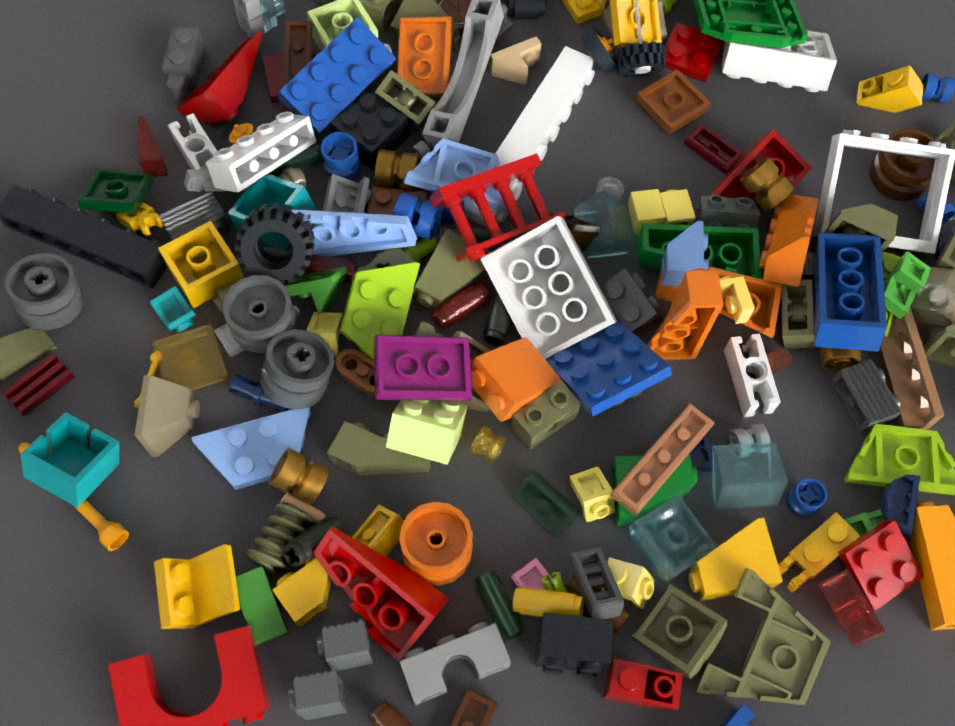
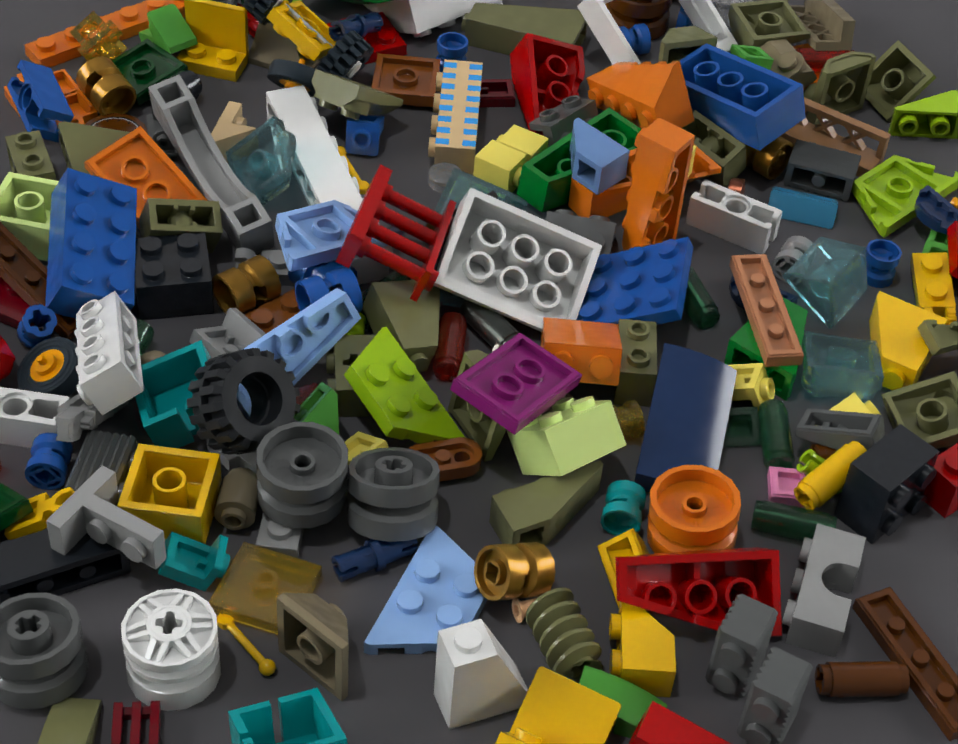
camera: 50 degrees left, 20 degrees down
(96, 351) = (171, 648): none -> white wheel
(136, 241) = (94, 512): none -> light grey bracket
(178, 193) = (46, 467): none -> blue wheel
(201, 514) = (474, 675): none -> white slope
(269, 112) = (41, 317): none -> blue bush
(301, 548) = (599, 606): pearl dark grey piece -> none
(340, 156) = (178, 312): blue wheel -> none
(413, 496) = (623, 507): none -> teal wheel
(503, 94) = (264, 160): none -> clear light blue slope
(516, 483) = (686, 414): none -> dark blue slope
(555, 155) = (363, 185): none -> yellow hinge
(567, 541) = (775, 434): none -> clear green piece
(598, 117) = (364, 135): none -> blue bracket
(611, 88) = (351, 96): none -> olive slope
(648, 407) = (699, 303): none -> clear green piece
(668, 152) = (458, 114): none -> tan brick
(677, 39) = (360, 23): none -> dark blue pin
(726, 104) = (451, 47): none -> blue wheel
(767, 184) = (571, 75): pearl gold wheel -> none
(798, 122) = (503, 26): none -> olive slope
(819, 408) = (804, 207): none -> dark azure slope
(860, 184) = (638, 38): none -> blue wheel

